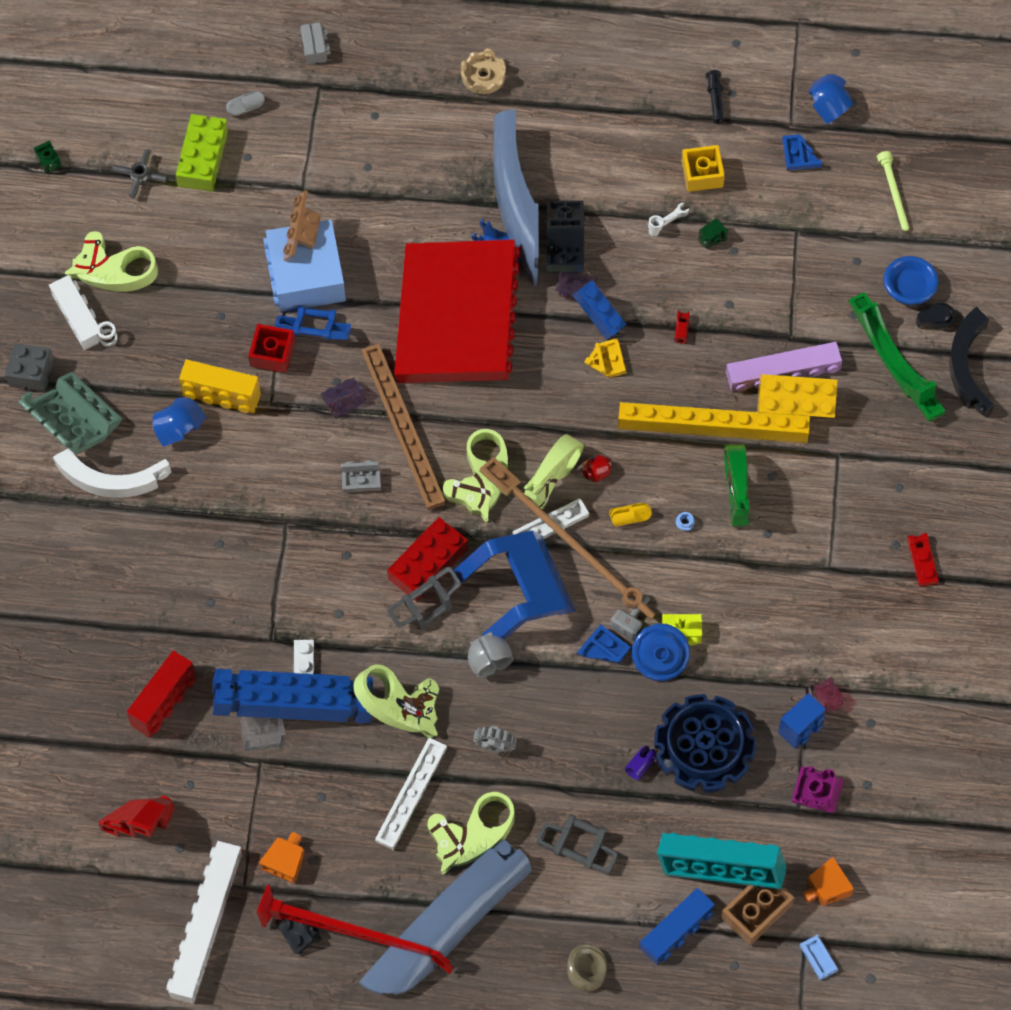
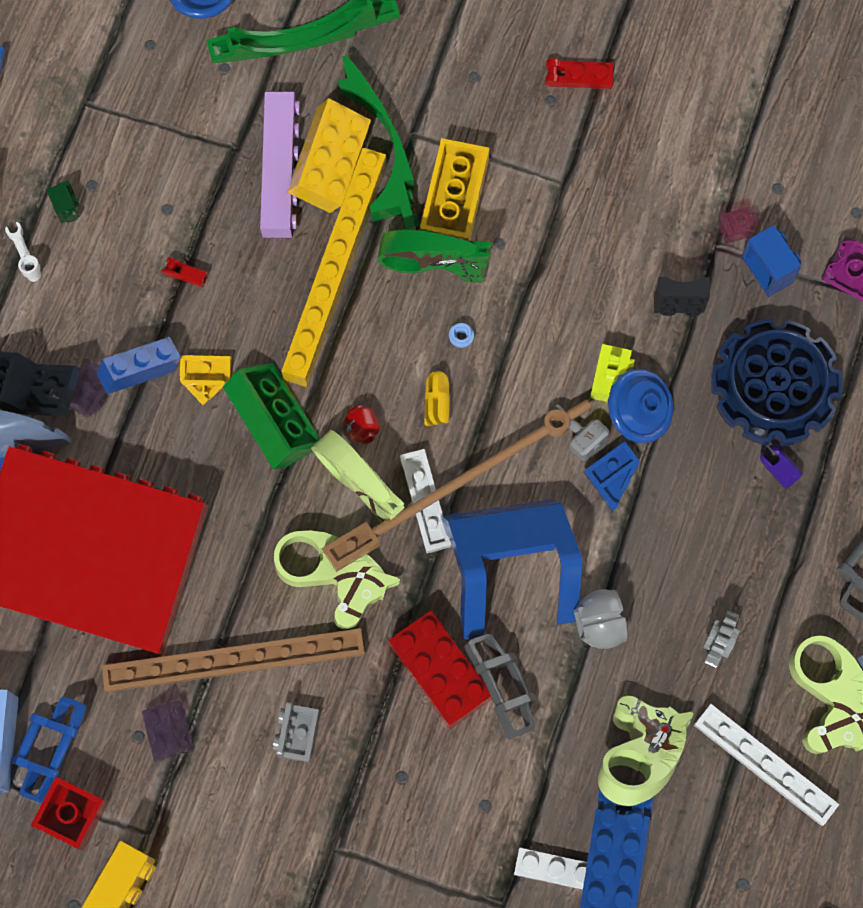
camera: 75 degrees left, 10 degrees up
(589, 407) = (271, 414): none -> green slope
(756, 667) = (681, 297): none -> black brick
(782, 451) = (397, 194): none -> green slope
(793, 489) = (455, 189): none -> yellow brick

